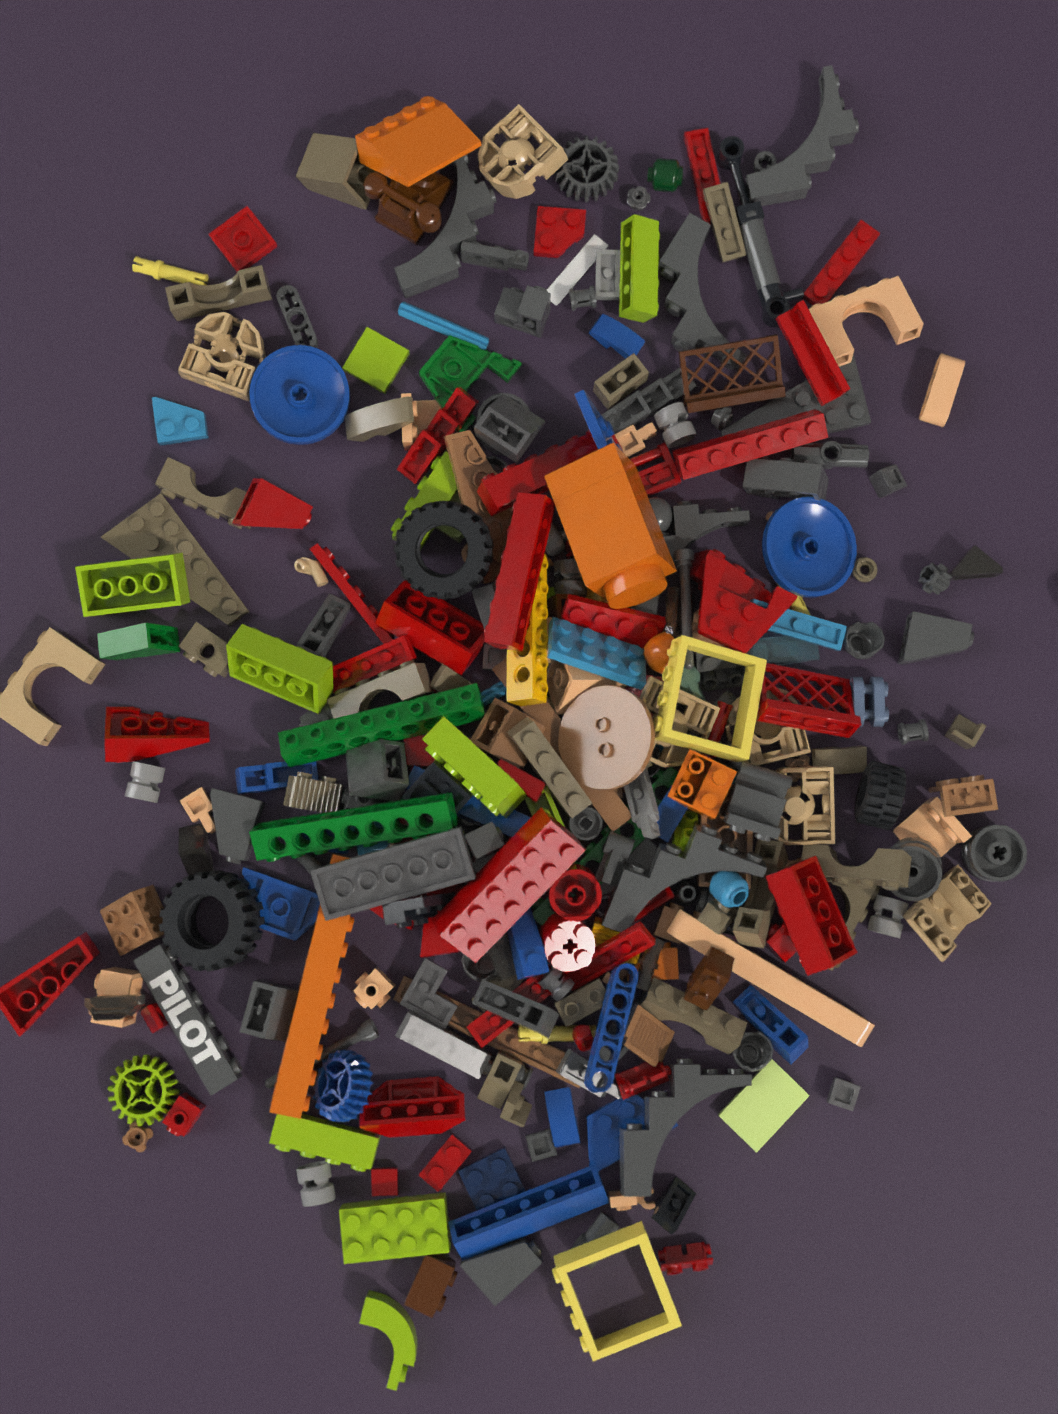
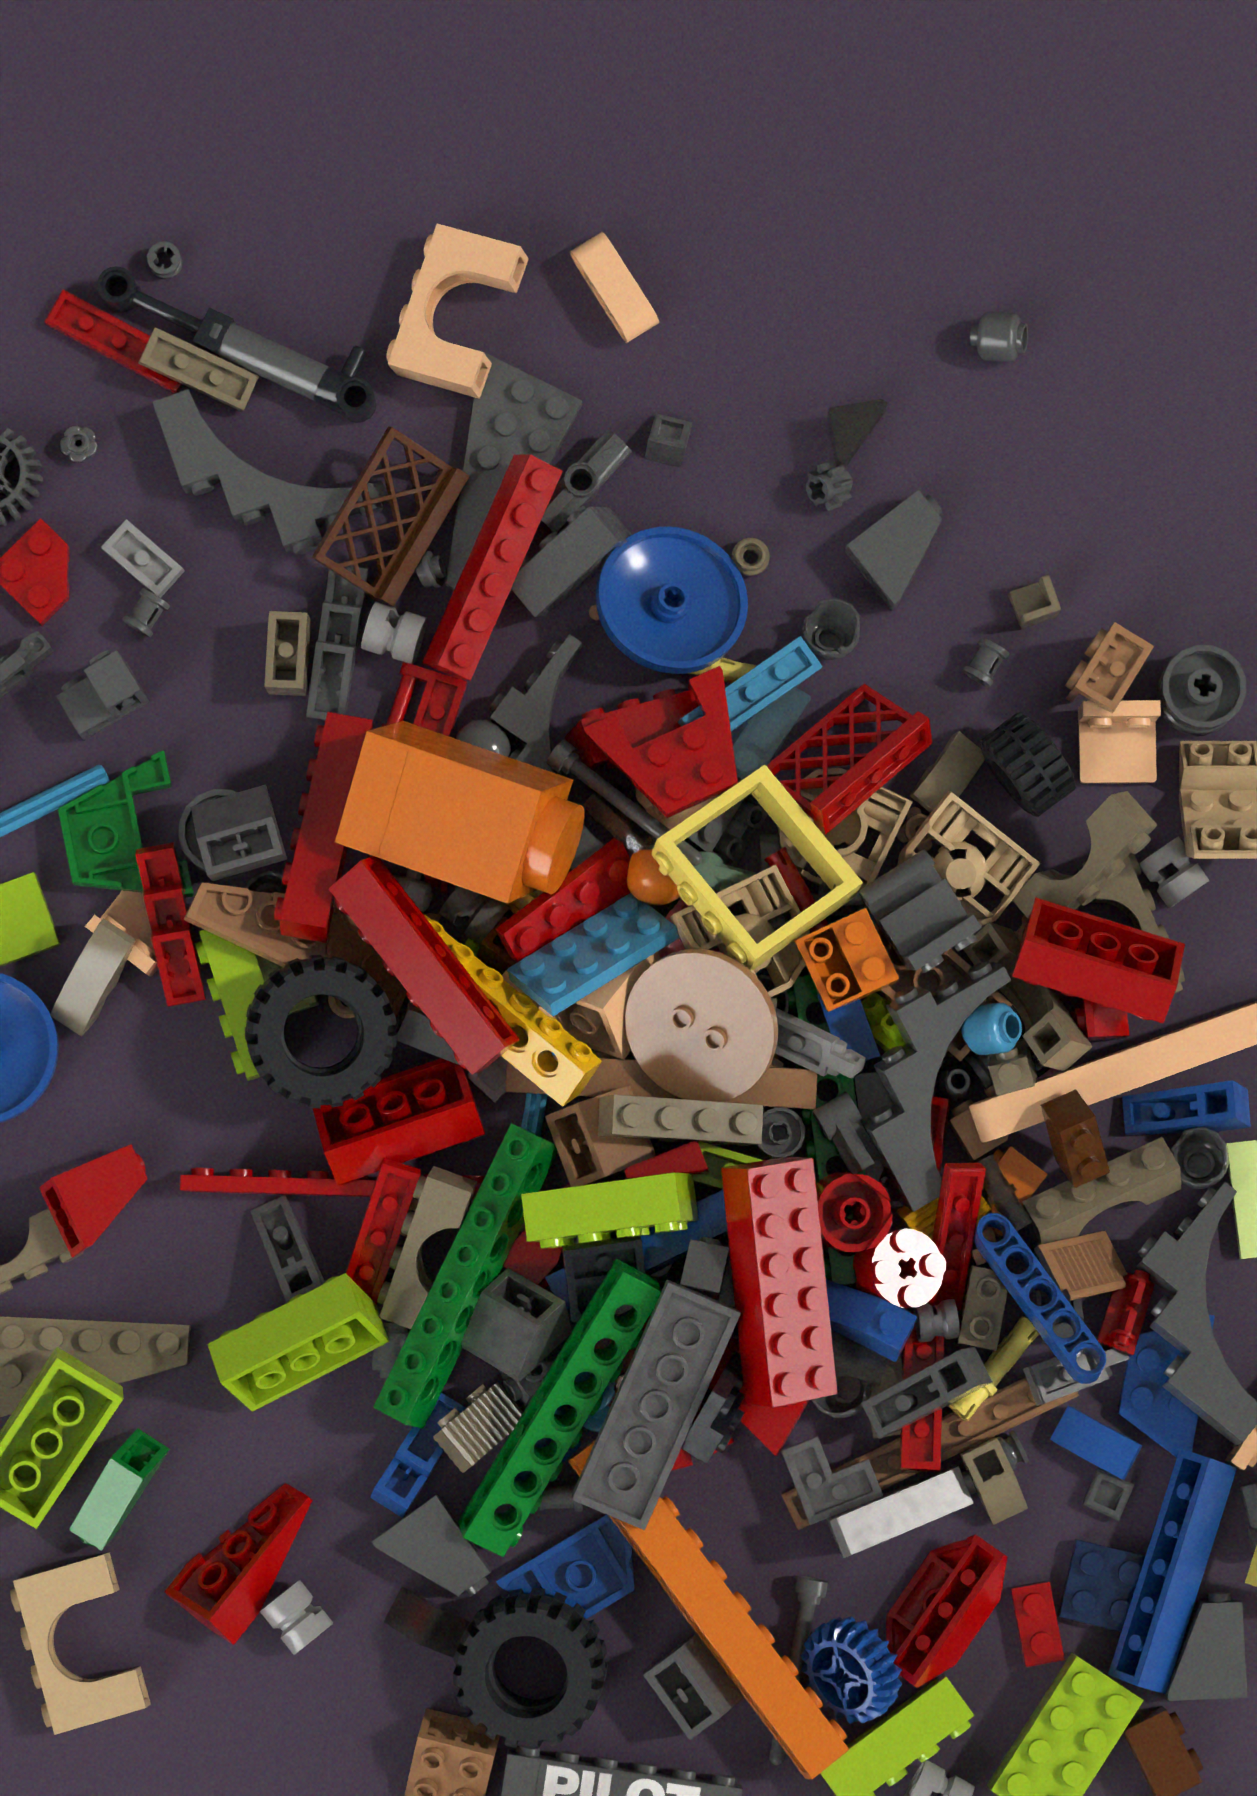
camera: 50 degrees left, 0 degrees up
(197, 641) = (177, 1418): dark tan brick -> none
(199, 807) = (379, 1577): light nougat plate -> none
(311, 567) = (201, 1206): tan arm -> none
(382, 985) = (767, 1527): light nougat brick -> none
(384, 1181) = (1001, 1713): red tile -> none
(447, 679) = (477, 1154): dark tan slope -> none
(515, 1108) = (1041, 1489): dark tan bracket -> none
(575, 269) = (102, 591): white sticker -> none
(583, 1037) = (1024, 1341): red piece -> none
(599, 428) = (328, 728): blue wing -> none
(616, 335) = (227, 610): blue slope -> none
(632, 439) = (369, 699): light nougat plate -> none
(639, 268) = (168, 517): lime brick -> none
(665, 175) = (80, 389): dark green head -> none
(792, 177) = (189, 145): dark grey arch -> none
(812, 353) = (446, 404): red fence -> none
(841, 264) = (364, 274): red plate -> none
(877, 692) = (904, 663): sand blue brick -> none
(928, 867) = (1152, 776): dark grey wheel -> none

